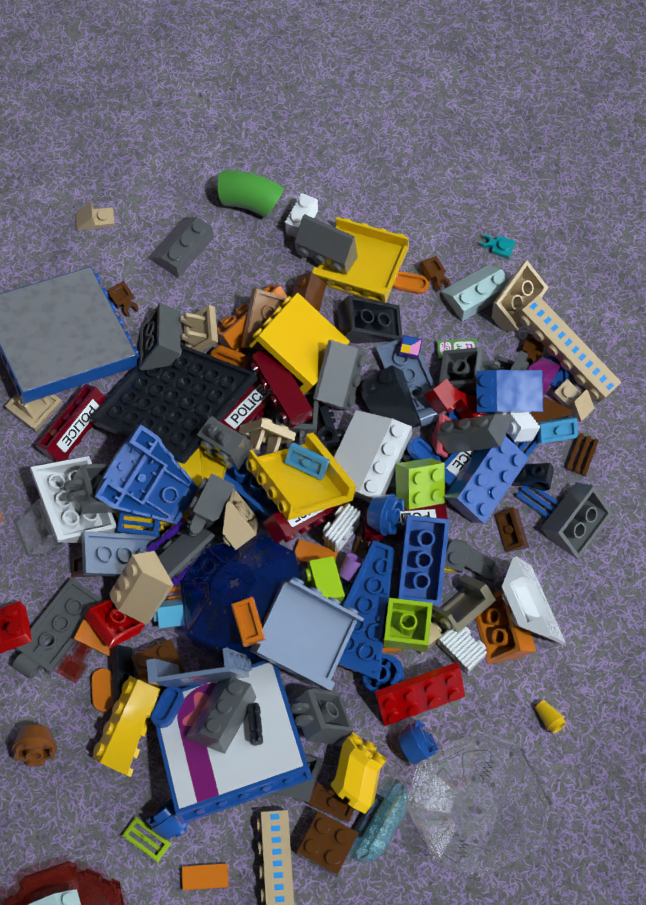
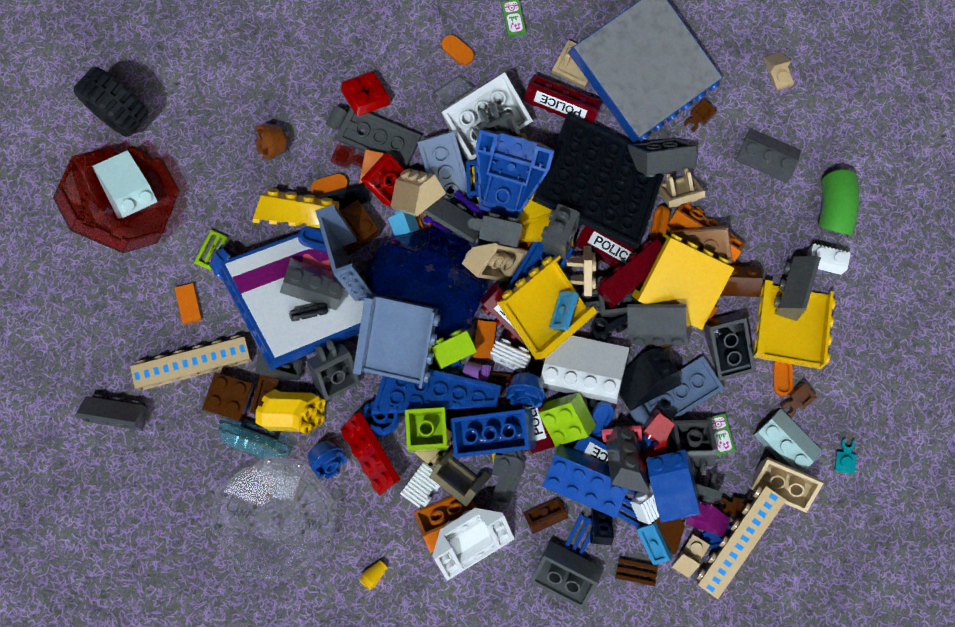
camera: 75 degrees right, 10 degrees up
(248, 621) = (392, 285): orange tile -> none
(410, 347) = (709, 388): tile -> none

